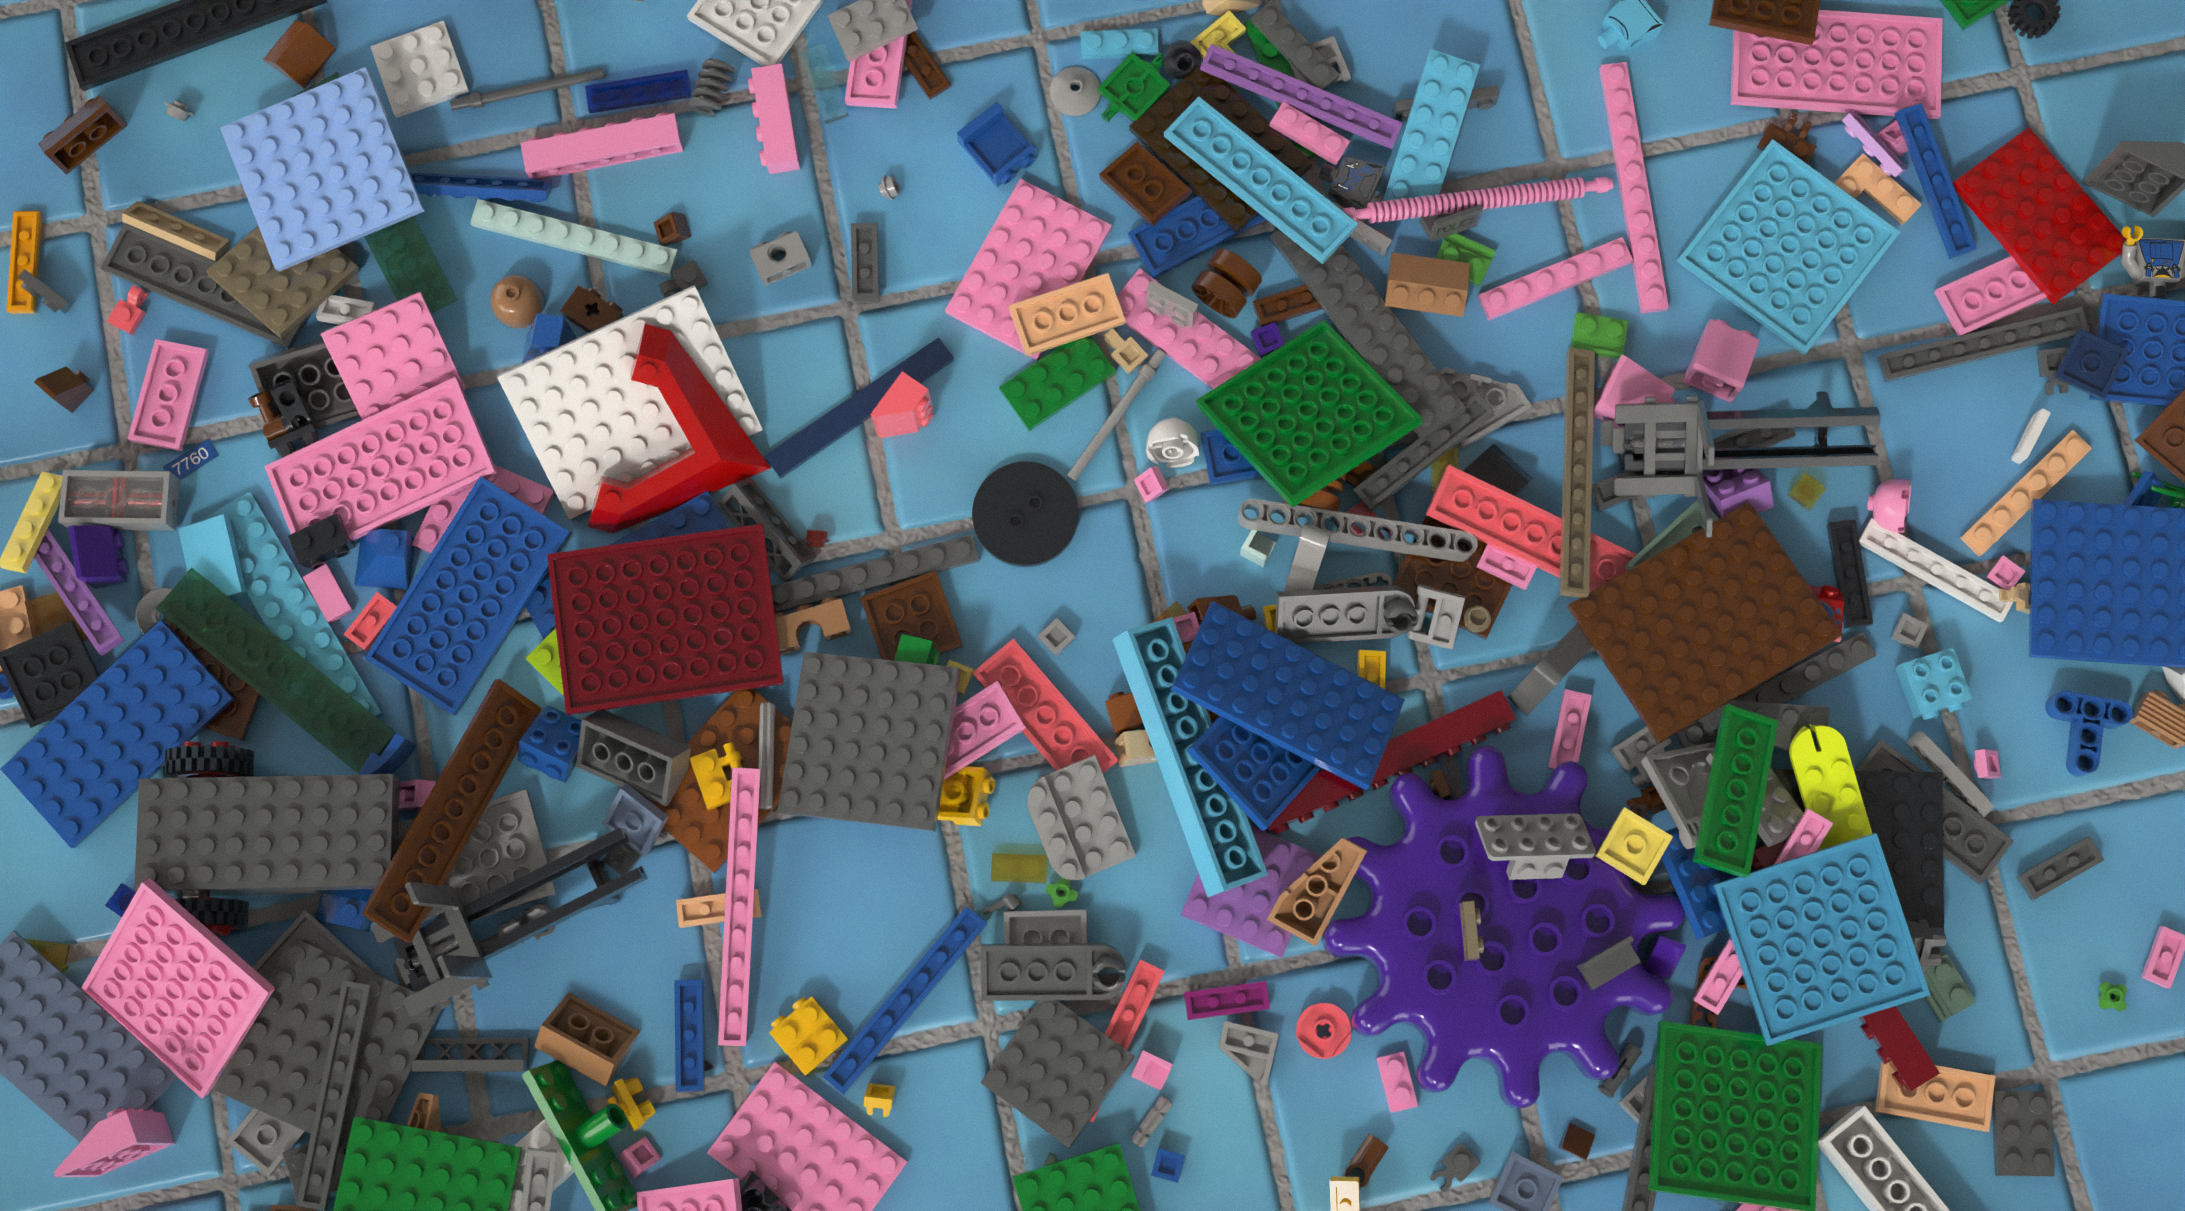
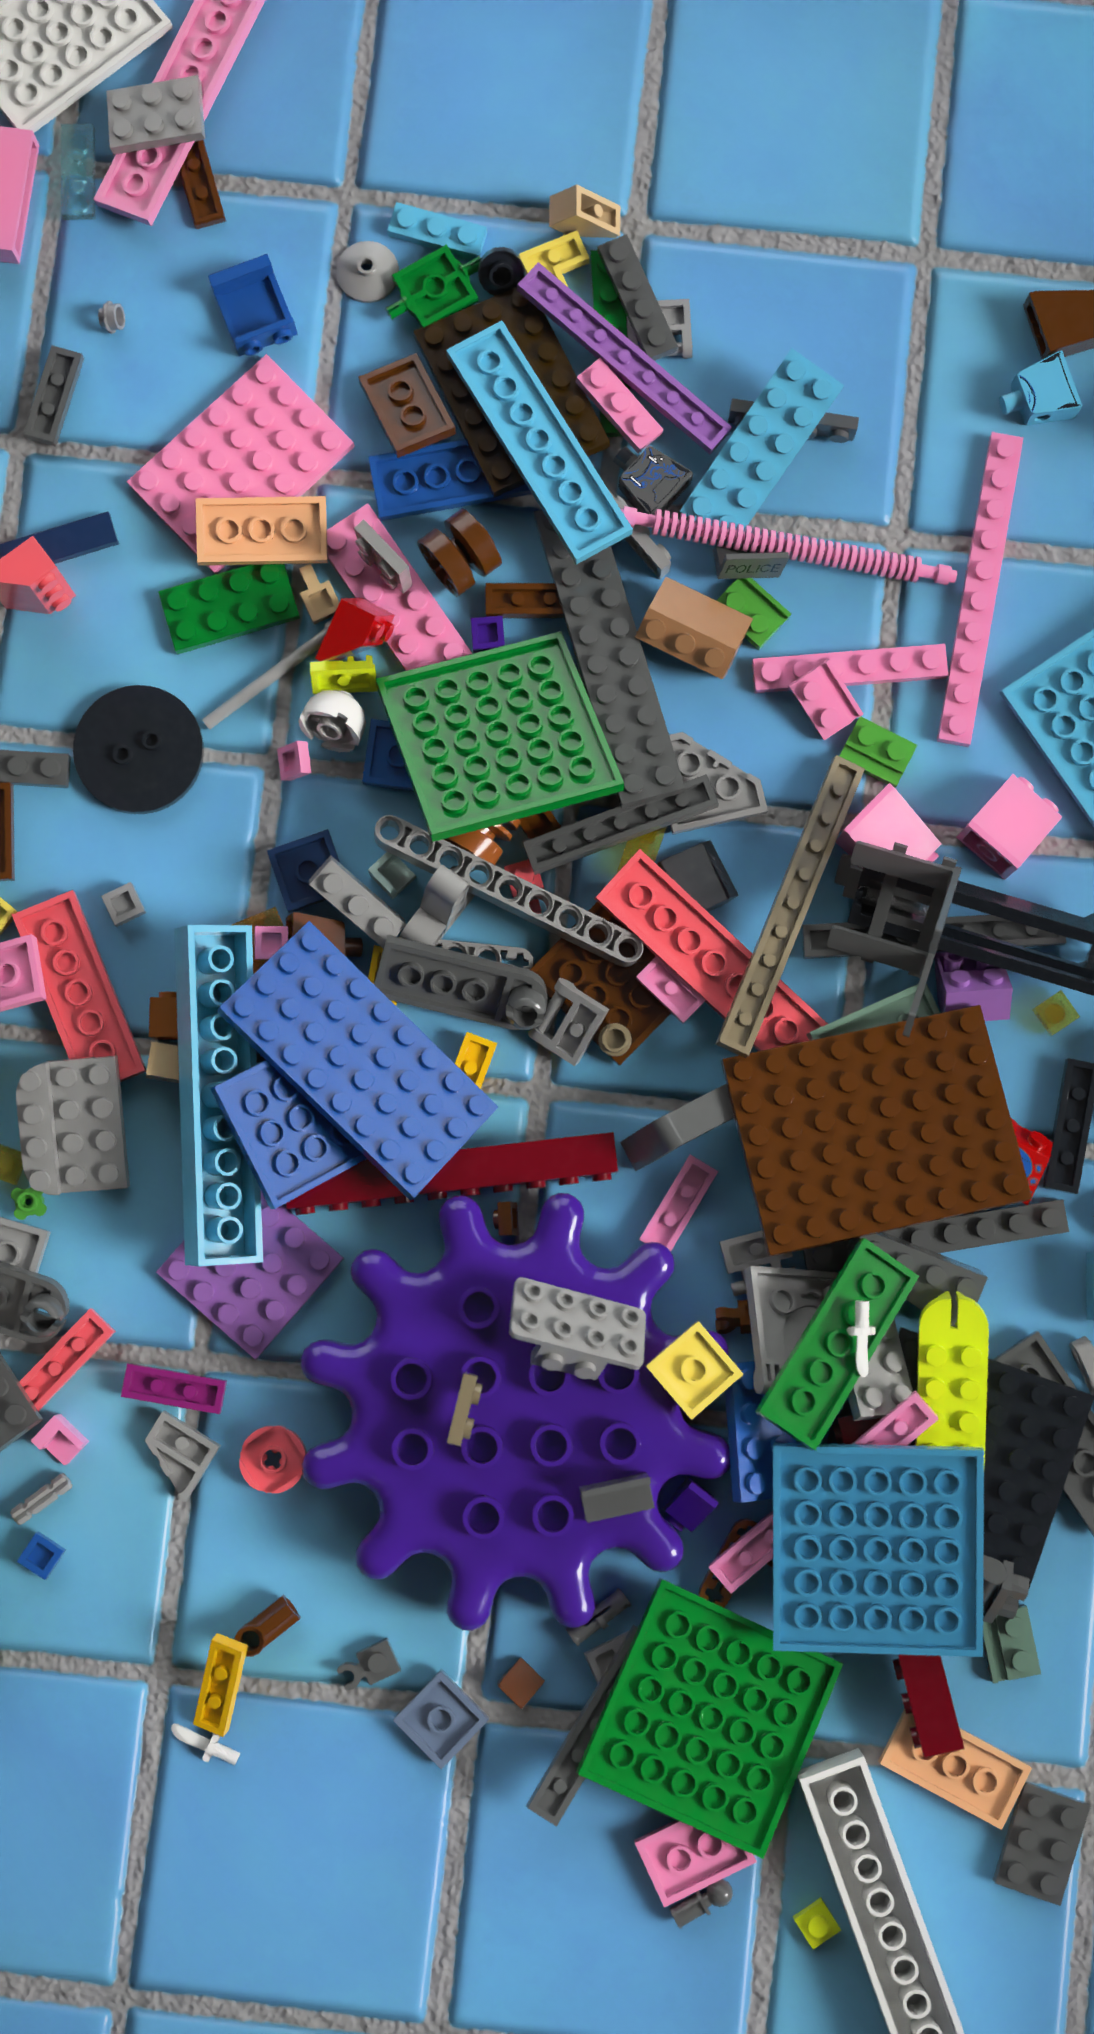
camera: 15 degrees right, 5 degrees up
(1167, 406) = (346, 676): none -> neon yellow plate
(1168, 366) = (354, 629): none -> red slope
(1191, 565) = (296, 864): none -> dark blue plate
(1241, 575) = (356, 901): none -> light grey brick
(1314, 896) = (308, 1305): medium nougat wedge -> none
(1397, 1082) = (338, 1545): bright pink plate -> none
(1546, 308) = (825, 699): none -> bright pink plate
(1751, 773) = (861, 1330): none -> white piece

